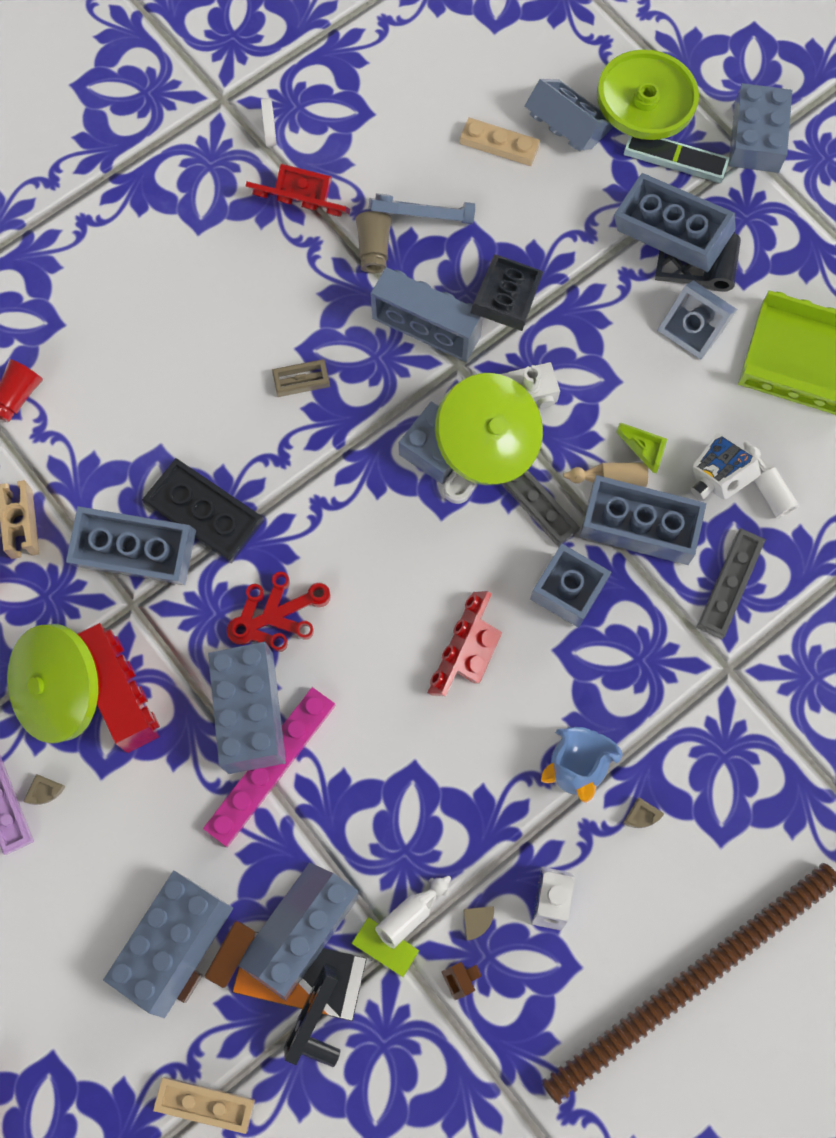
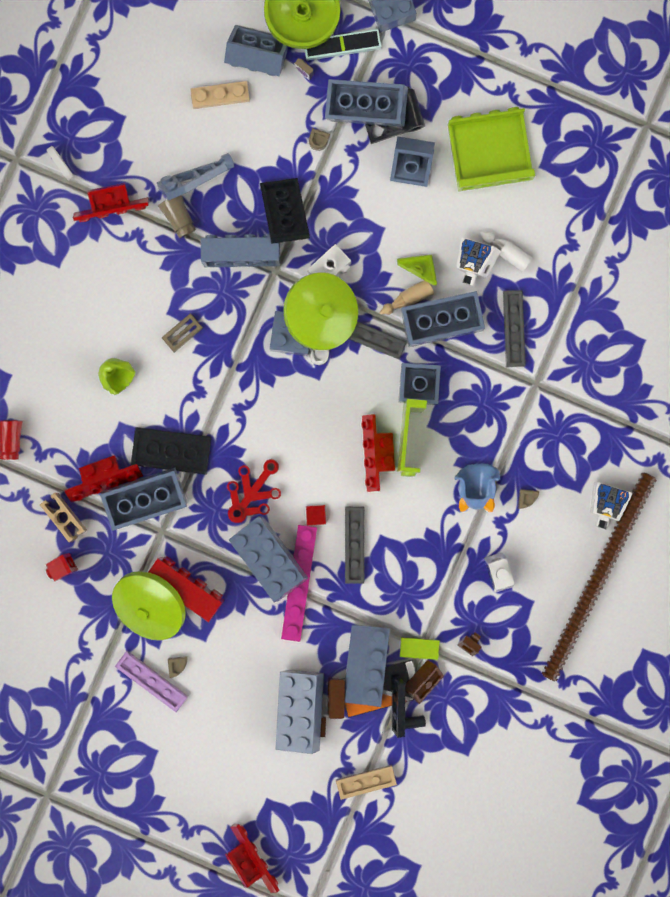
camera: 25 degrees left, 15 degrees up
(94, 492) = (102, 476): none -> red bracket
(189, 382) = (115, 375): none -> lime hair
(342, 687) = (315, 515): none -> red slope
(366, 998) = (423, 681): none -> reddish brown slope
(372, 754) = (354, 545): none -> dark grey tile
(411, 913) = (424, 622): white wheel -> none
(477, 921) = (463, 607): dark tan tile -> none
(547, 606) = (409, 405): none -> lime panel
(592, 243) = (318, 139): none -> dark tan tile
(616, 157) = (304, 68): none -> dark tan tile
(755, 880) = (608, 503): none -> torso

